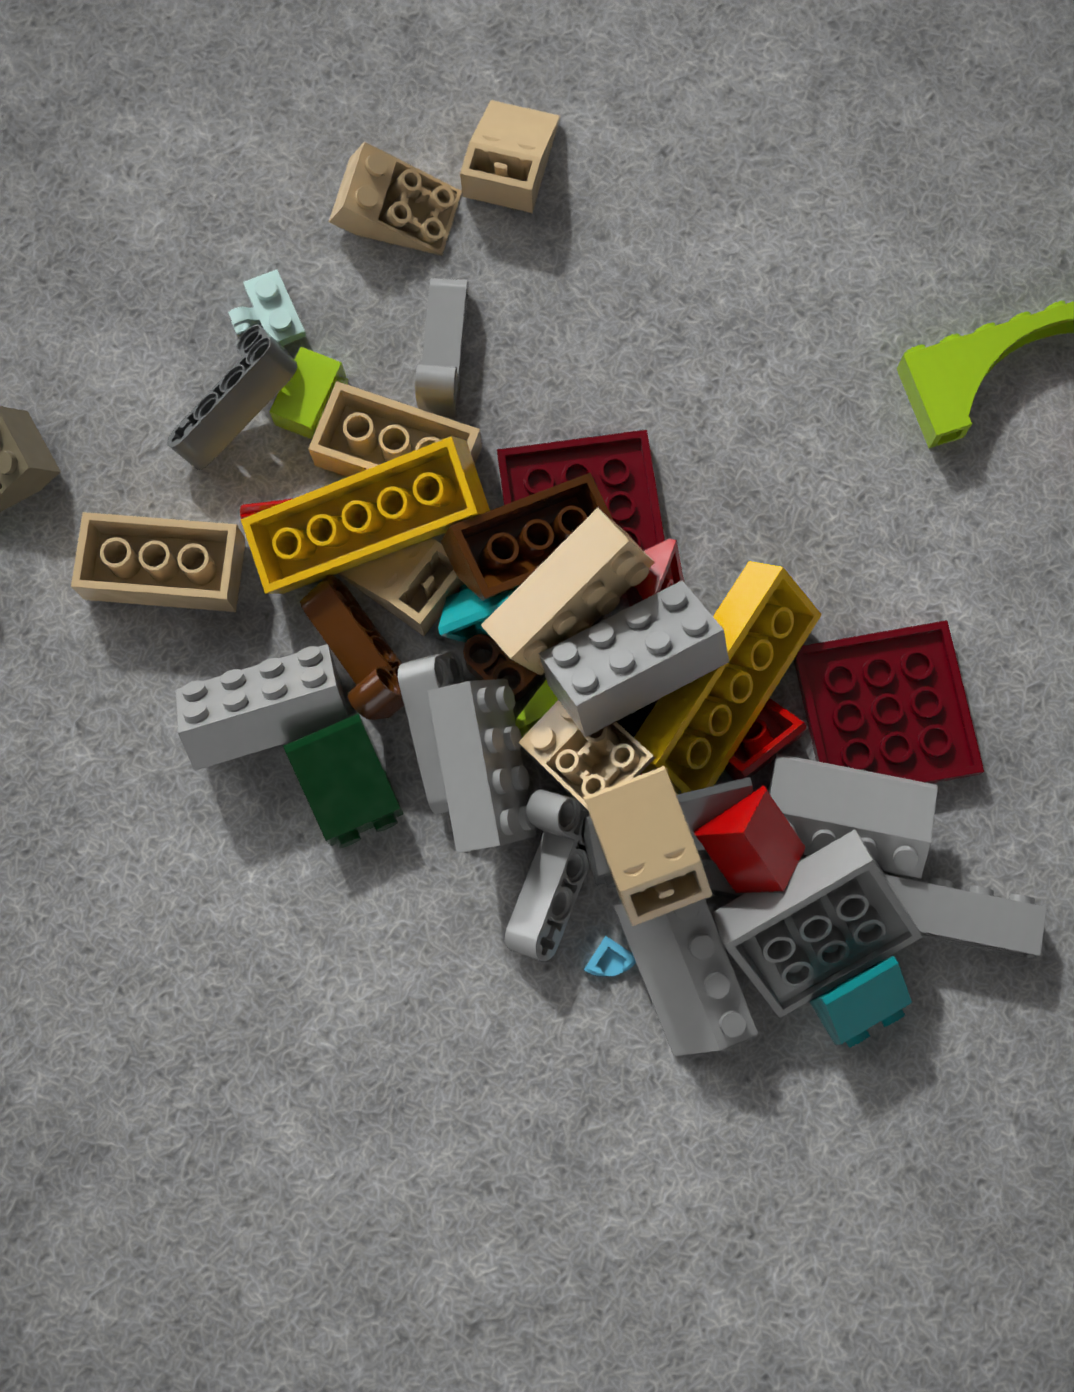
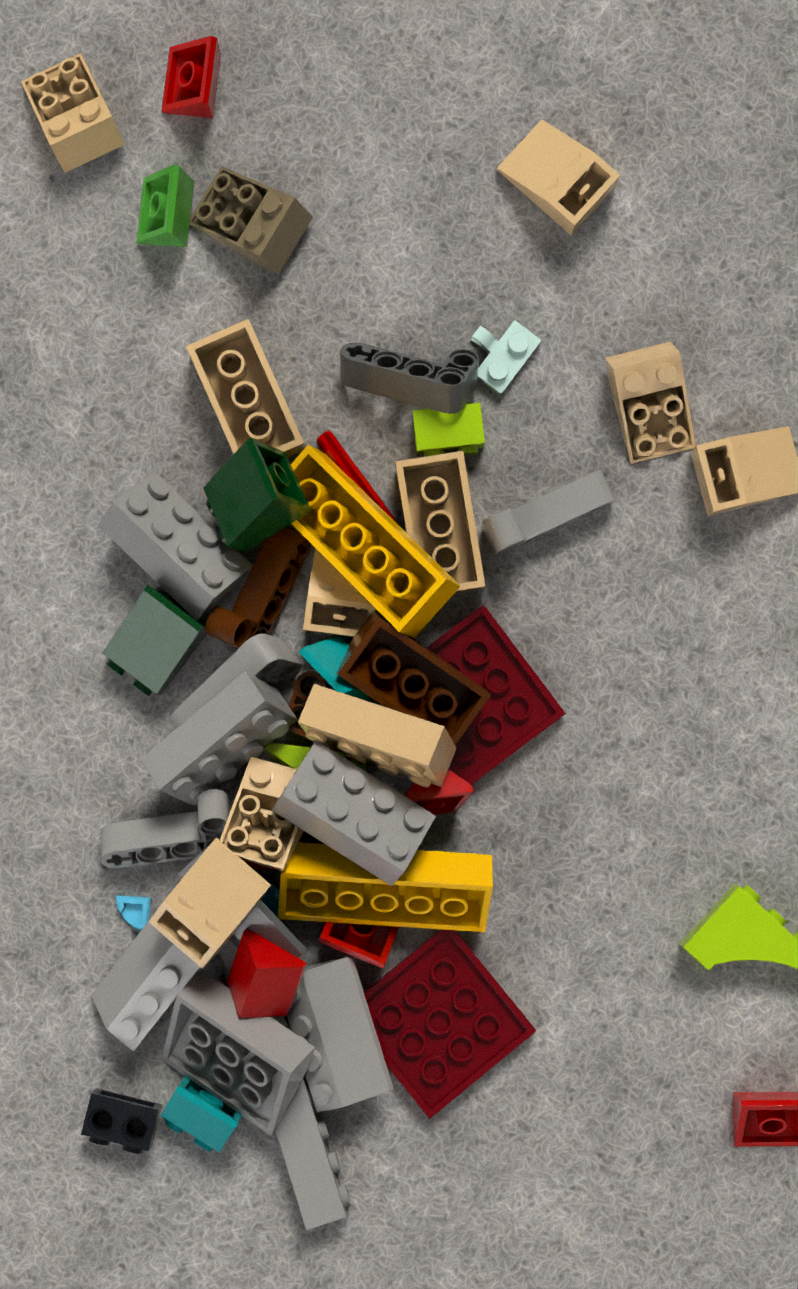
camera: 60 degrees right, 10 degrees up
(134, 171) = (559, 175): none -> tan slope
(258, 596) = (254, 495): none -> dark green slope
(816, 1084) = (123, 1110): none -> black brick

